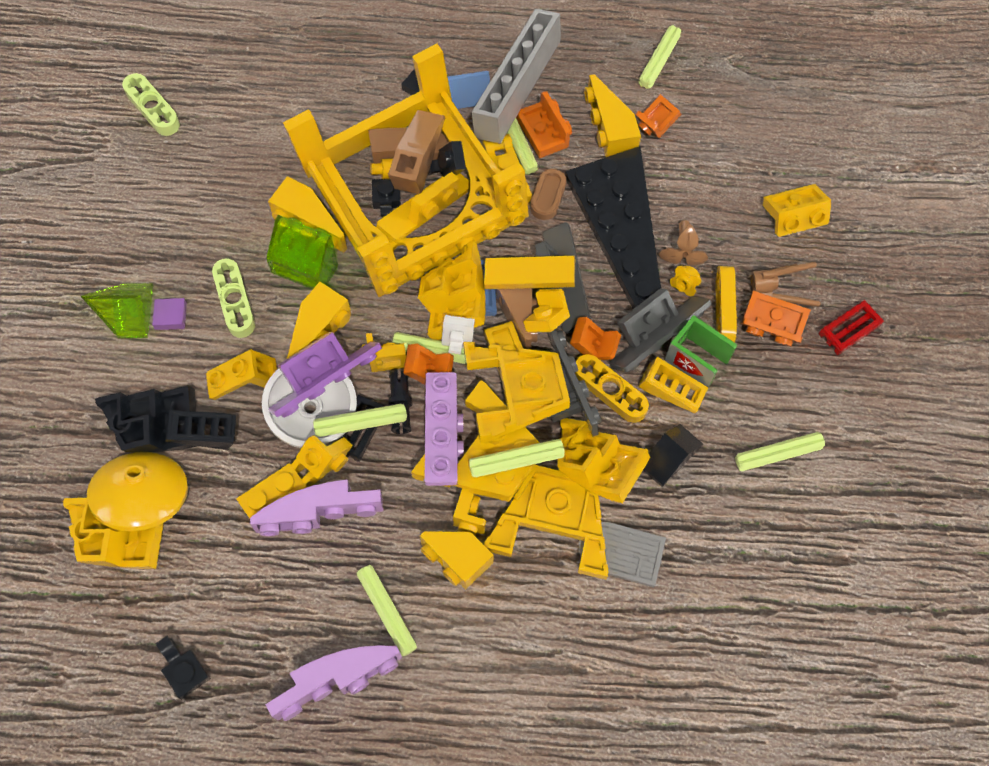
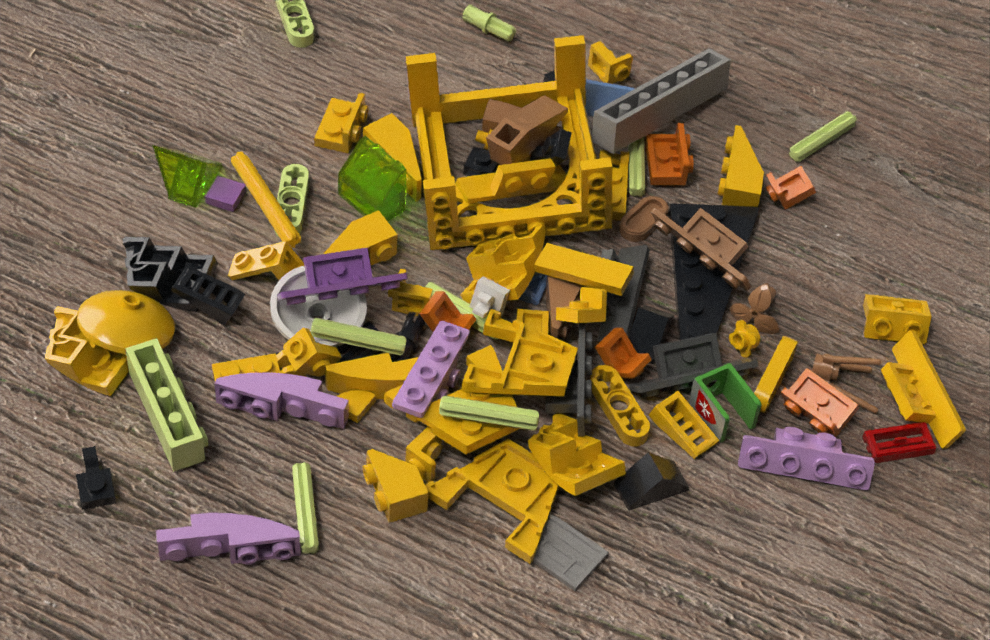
camera: 20 degrees right, 15 degrees down
(211, 309) = (265, 199): none -> yellow axle
(215, 565) = (166, 405): none -> yellowish green brick
(243, 201) = (341, 124): none -> yellow bracket
(329, 49) = (488, 23): none -> yellowish green axle
(383, 480) = (359, 403): none -> yellow tile
(388, 451) = (371, 374): none -> yellow slope
(455, 56) = (607, 66): none -> yellow bracket
(604, 303) = (650, 329): none -> black slope
(621, 199) = (711, 241): none -> medium nougat bracket
(779, 451) = (764, 521): yellowish green axle -> none
(786, 374) = (807, 458): none -> lavender bracket
(850, 272) = (921, 391): none -> yellow bracket

